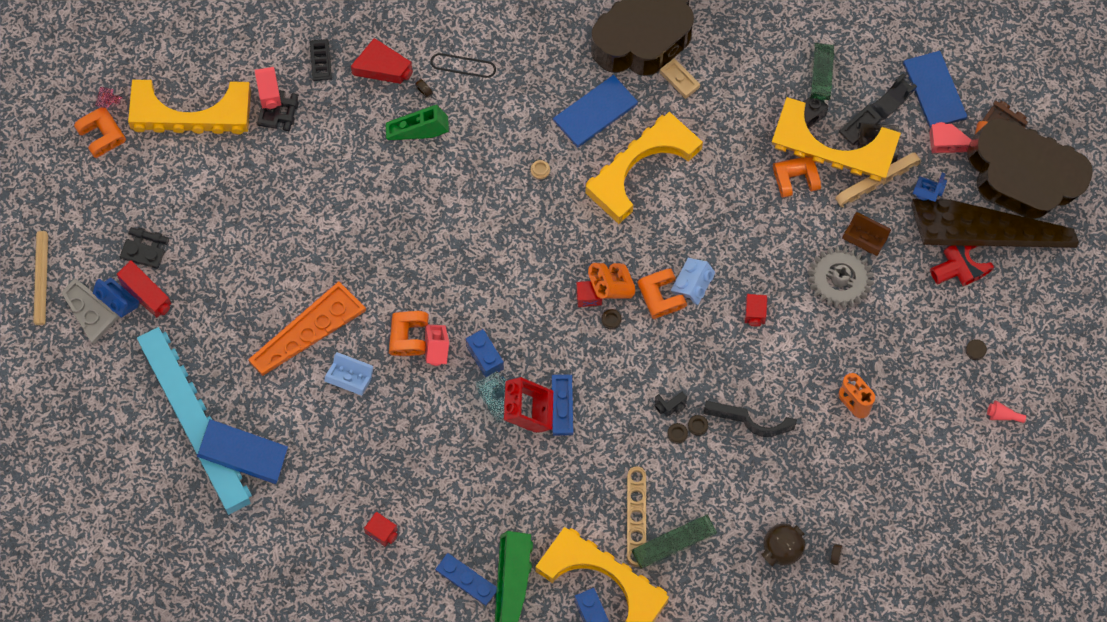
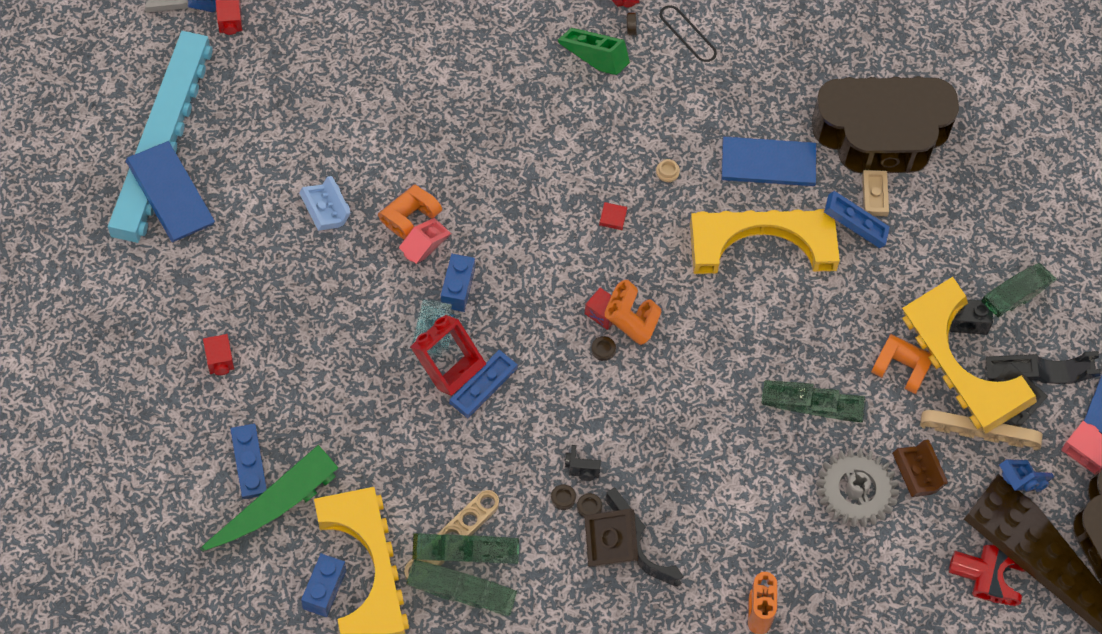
camera: 40 degrees right, 5 degrees down
(316, 322) = (338, 140): orange wing -> none
(535, 228) = (613, 216): none -> red tile
(654, 516) = (465, 548): none -> clear green slope
(656, 304) = (657, 366): orange connector -> none
(687, 105) = (856, 219): none -> blue plate
(693, 280) = (713, 376): light blue bracket -> none
(733, 433) = (611, 538): none -> dark brown plate
(755, 309) = (744, 448): red brick -> none
(766, 245) = (813, 401): none -> clear green slope

